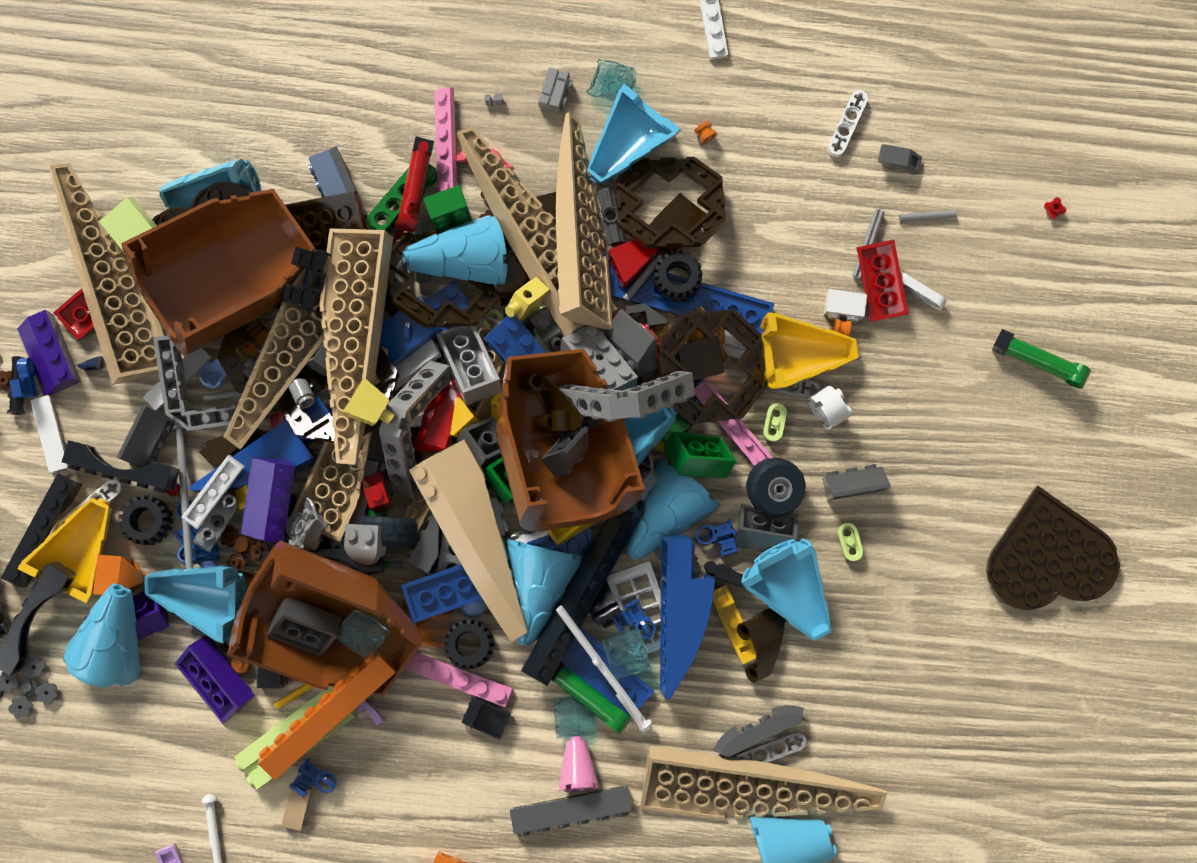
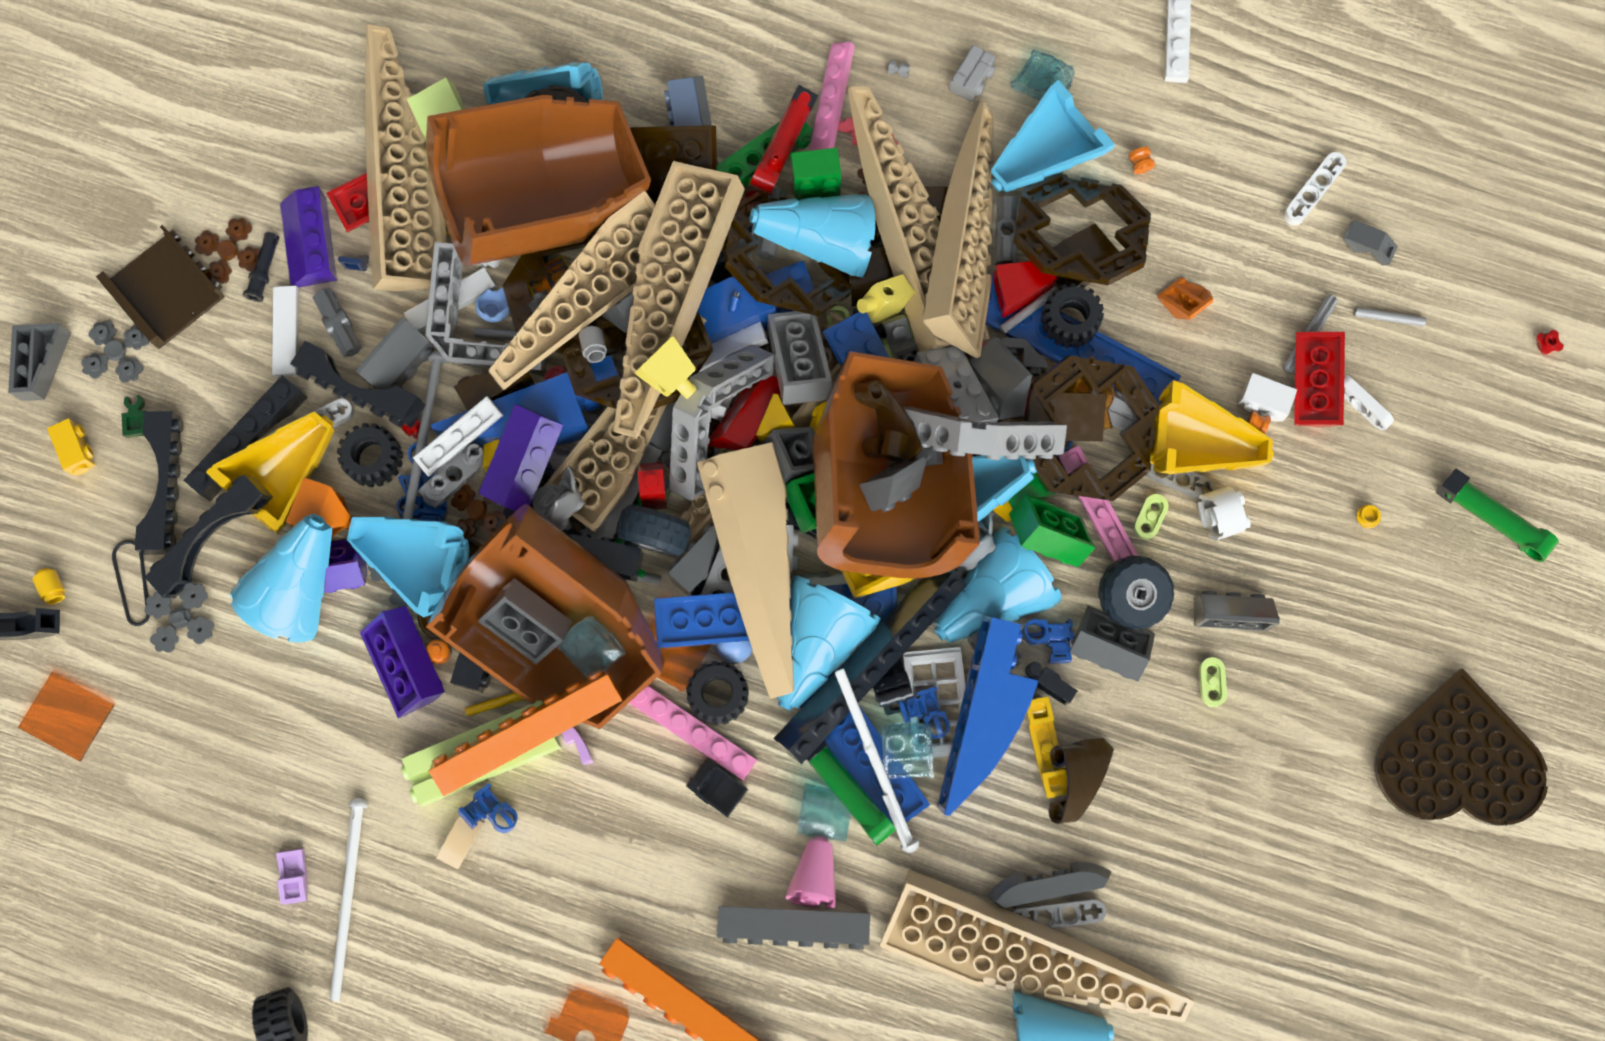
camera: 15 degrees right, 5 degrees down
(26, 385) = (273, 265): blue piece -> none
(90, 417) = (337, 322): none -> dark grey piece
(308, 296) = (627, 232): black piece -> none
(364, 543) = (622, 536): light grey slope -> none
(764, 239) = (1185, 299): none -> orange slope
(792, 586) = (1131, 716): medium azure cone -> none
(942, 381) = (1368, 516): none -> yellow plate

